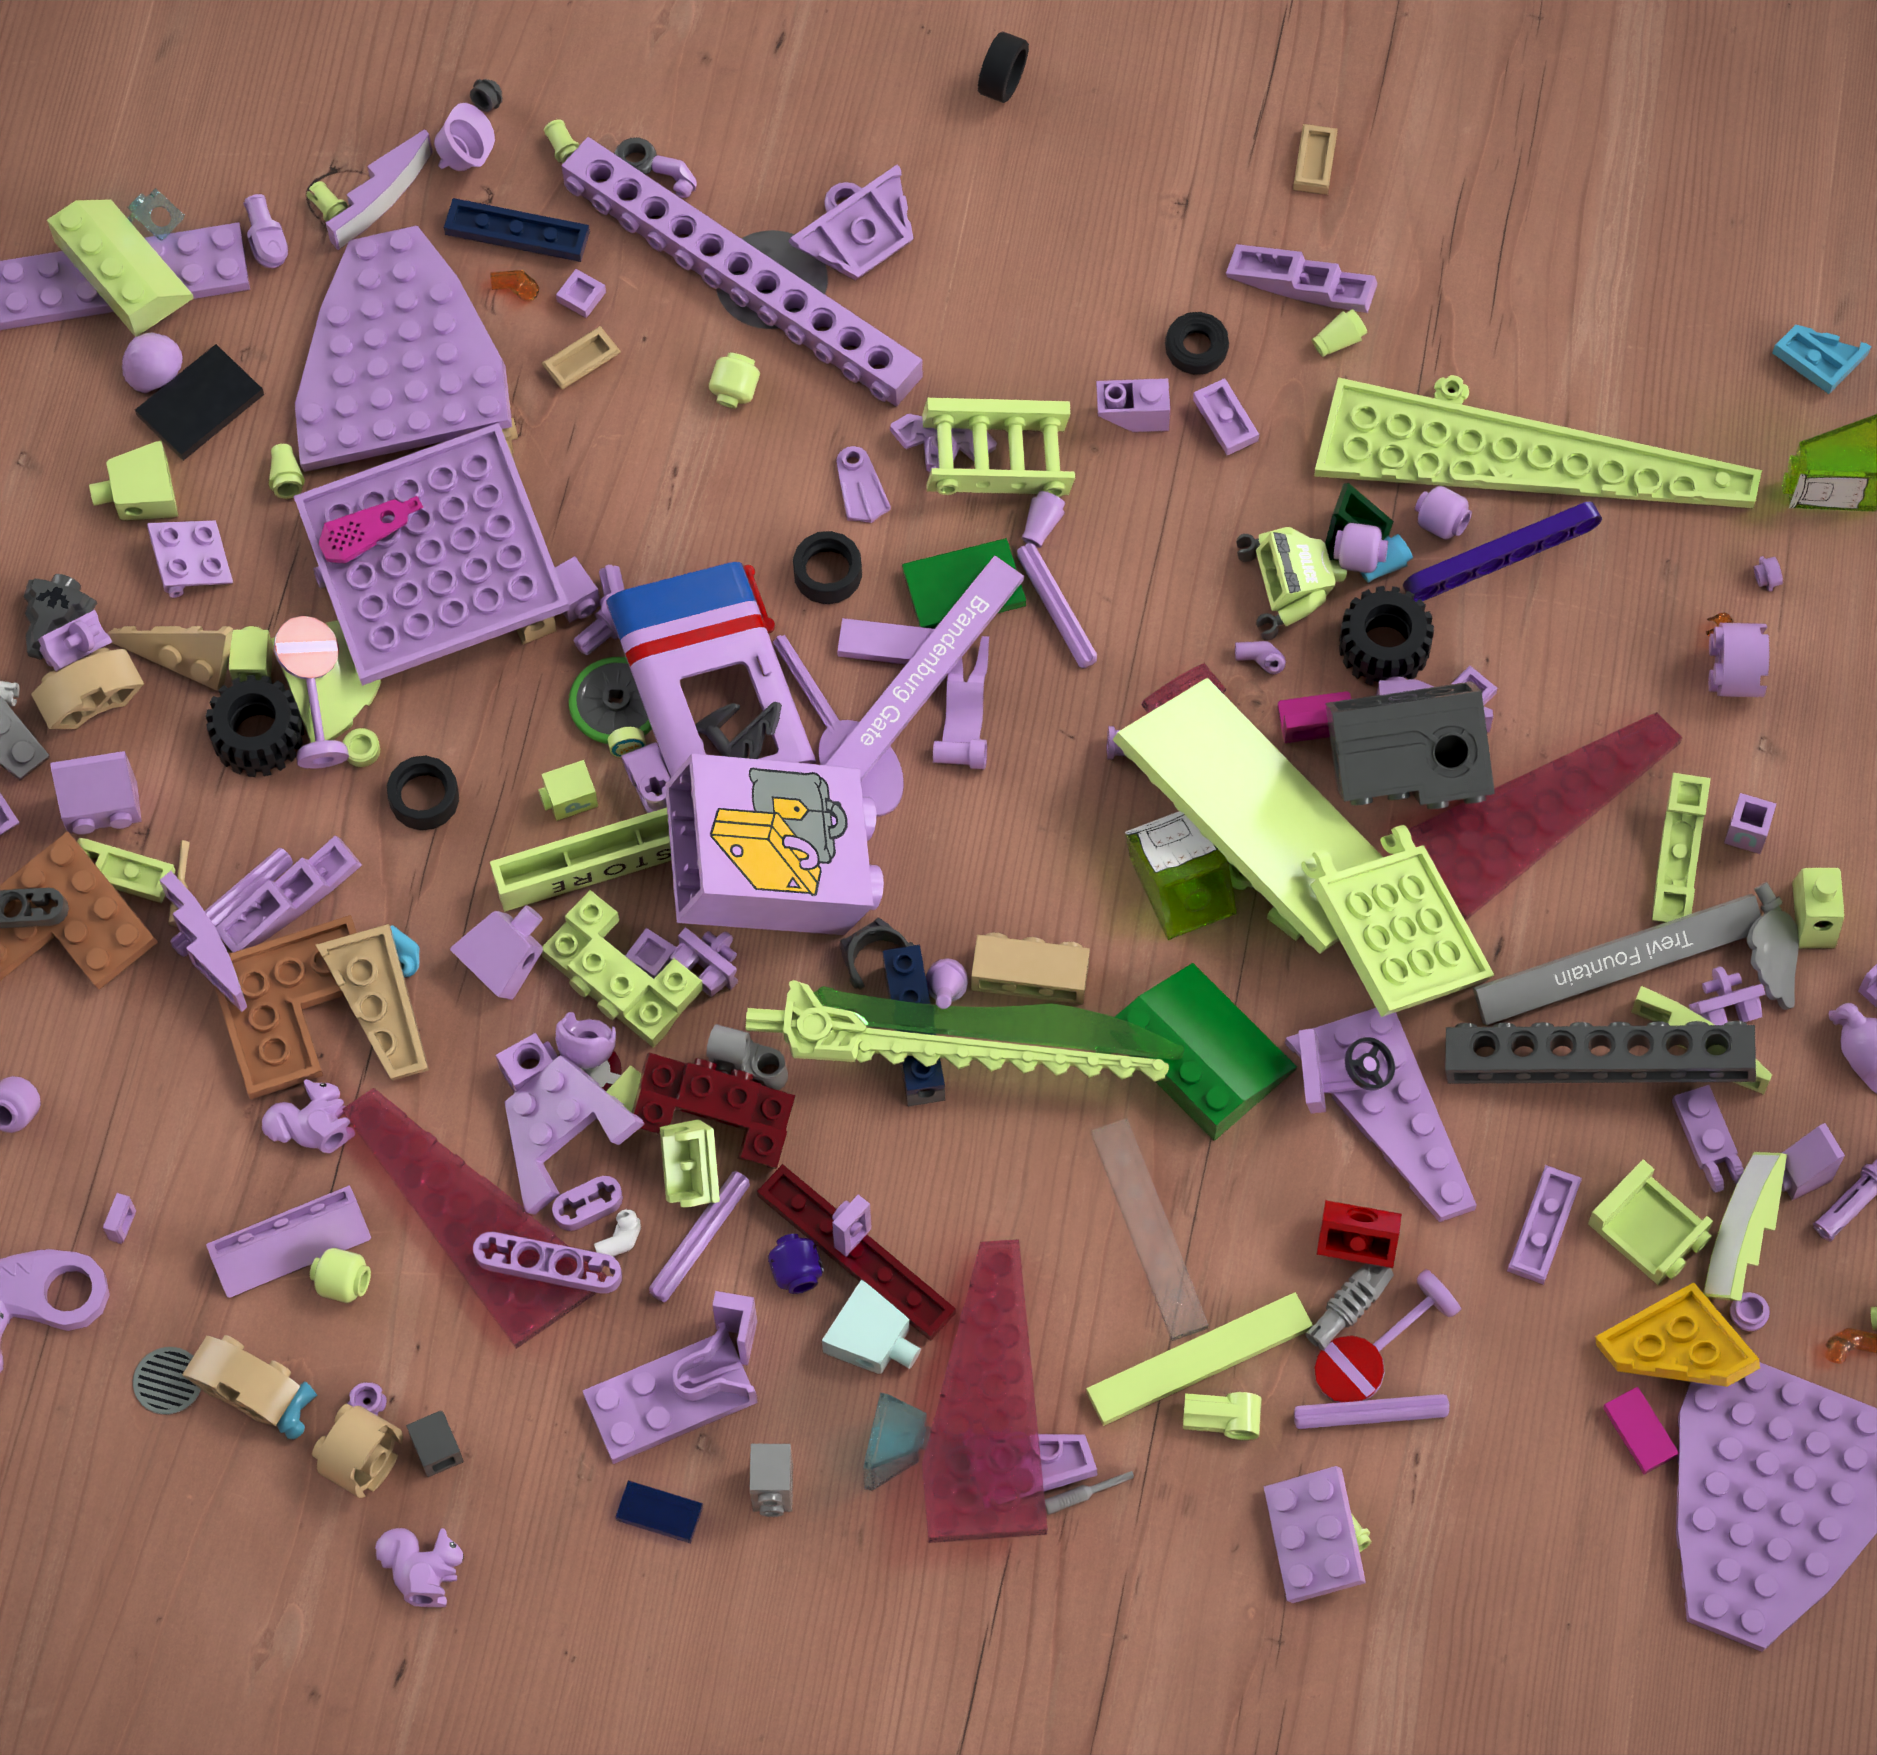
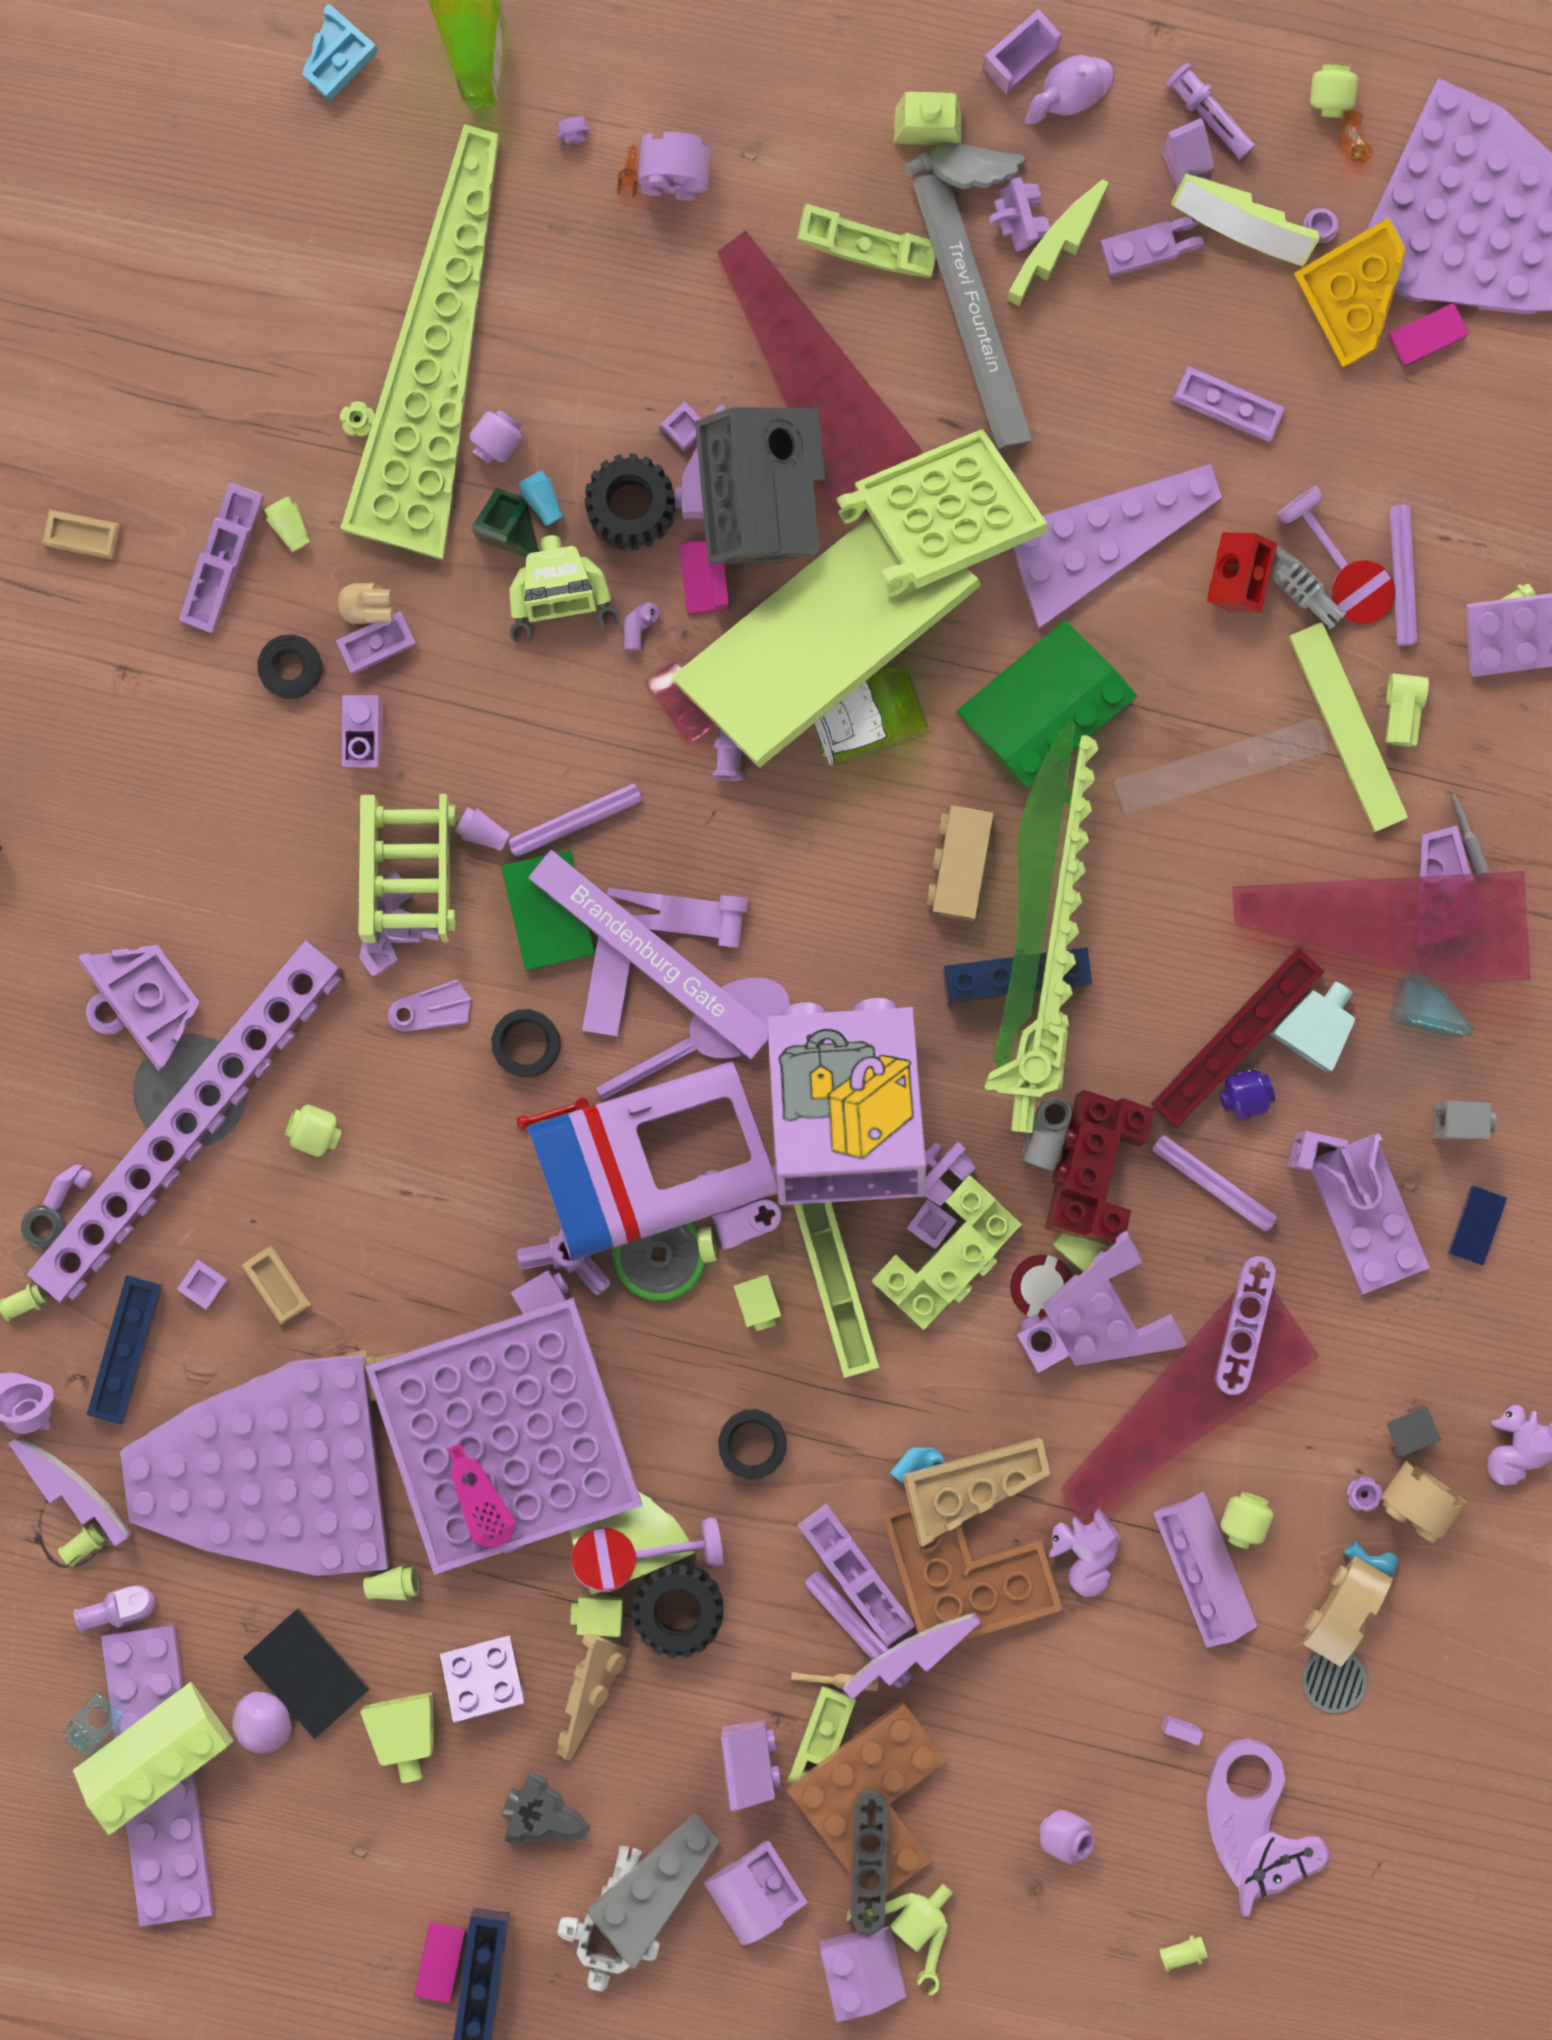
camera: 85 degrees left, 20 degrees up
(73, 641) = (581, 1791): lavender hips -> none
(87, 688) = (629, 1777): tan brick -> none
(362, 747) = (697, 1504): yellowish green tile -> none
(501, 950) = (928, 1367): lavender torso -> none
(517, 281) = (183, 1348): clear orange arm -> none
(585, 1041) = (1022, 1287): lavender hair -> none
(591, 1210) = (1185, 1283): lavender beam -> none
(624, 1235) = (1214, 1255): white arm -> none
(689, 1163) = (1155, 1189): yellowish green hinge -> none
(749, 738) = (722, 1137): dark grey piece -> none
(851, 1224) = (1230, 1039): lavender plate -> none
(852, 945) = (926, 1032): dark grey helmet -> none
(946, 981) = (974, 943): lavender piece -> none
(1264, 402) = (365, 603): none -> tan piece
(1340, 1070) = (1080, 575): lavender piece -> none
(1360, 547) = (539, 518): lavender head -> none
(1503, 551) = (539, 383): dark purple beam -> none
(1617, 1066) = (1099, 206): dark grey brick -> none
(1650, 1225) = (1236, 306): yellowish green panel -> none
(1750, 823) = (844, 173): lavender brick -> none

